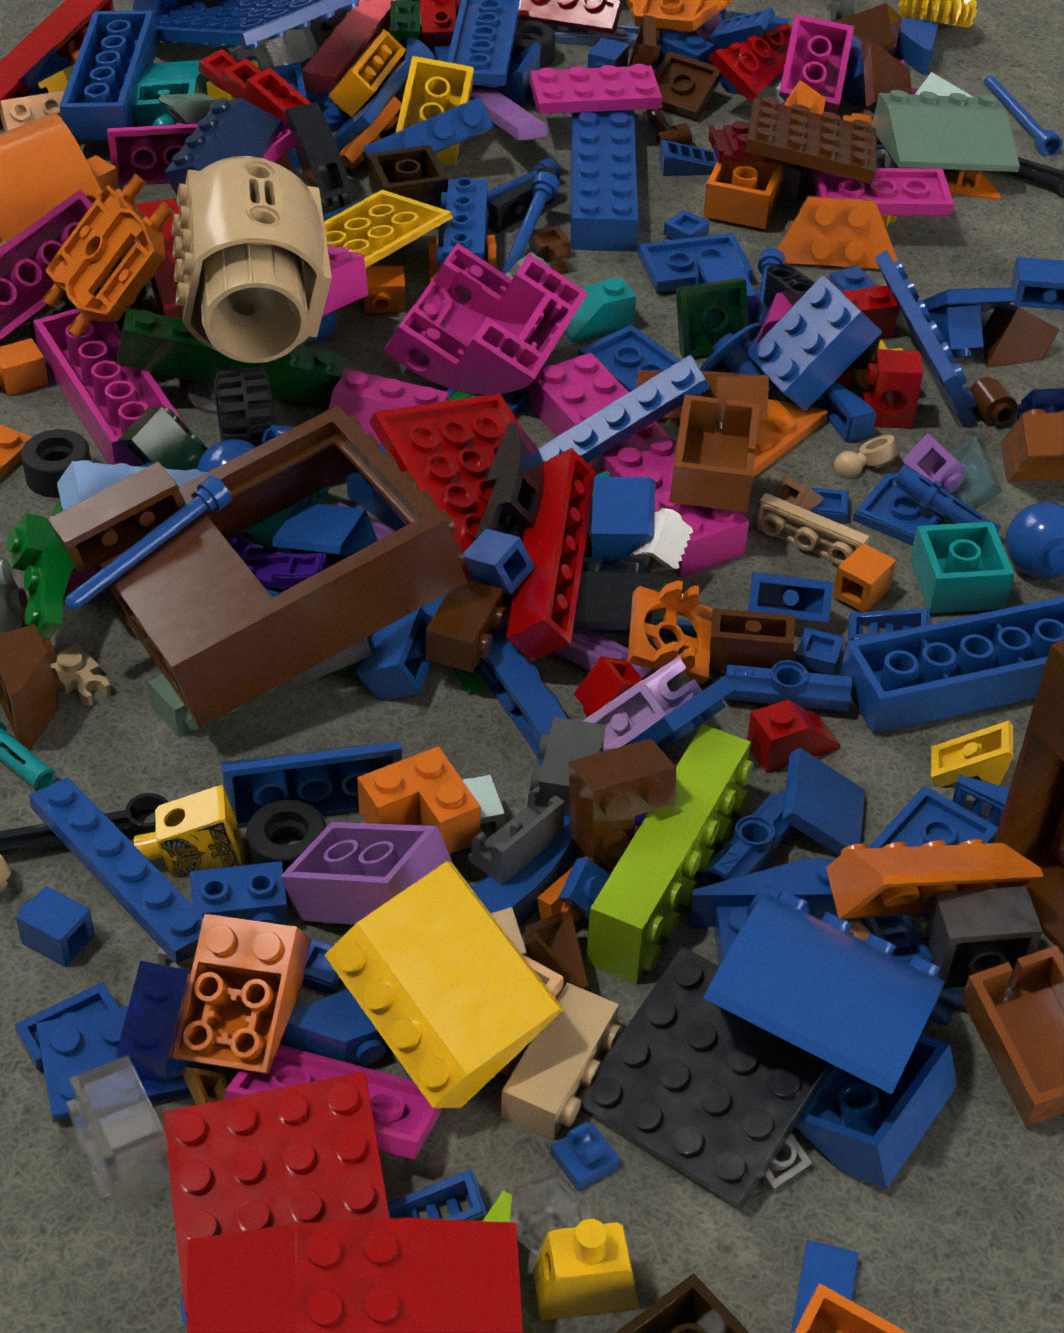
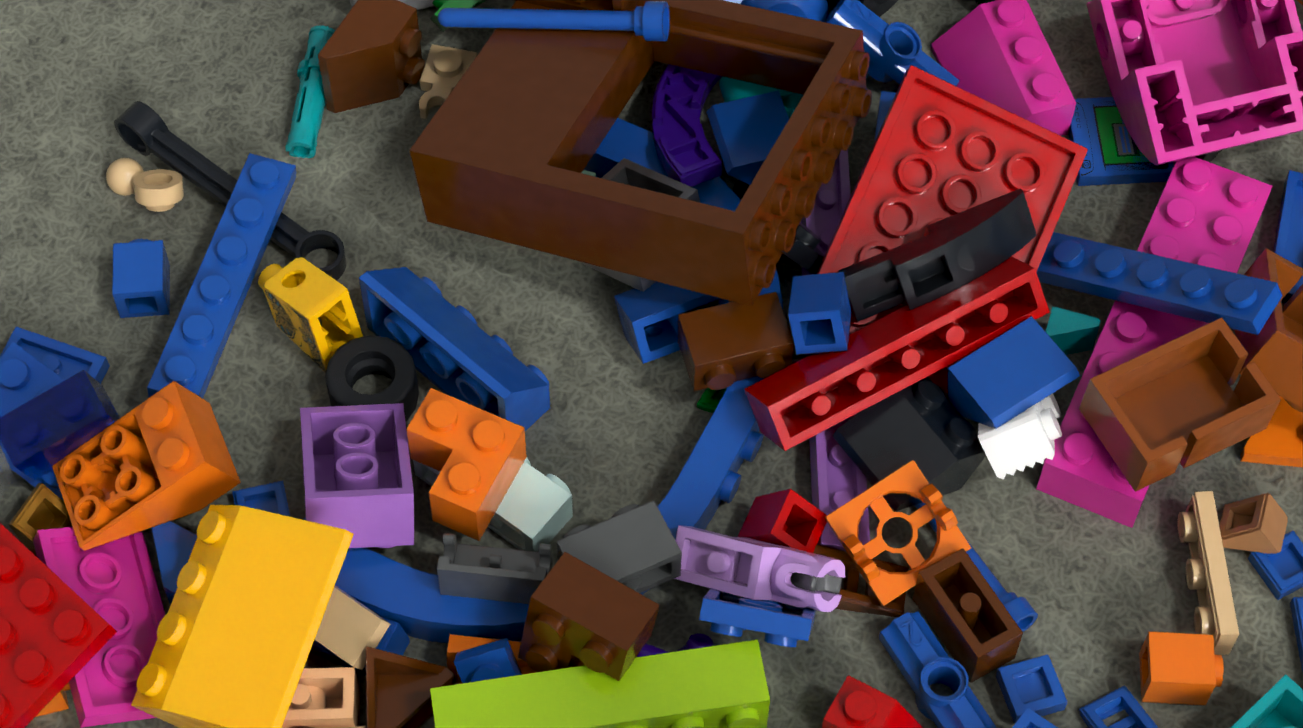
camera: 55 degrees right, 15 degrees up
(241, 892) = (268, 393): blue brick -> none
(790, 596) = (1068, 606): blue slope -> none

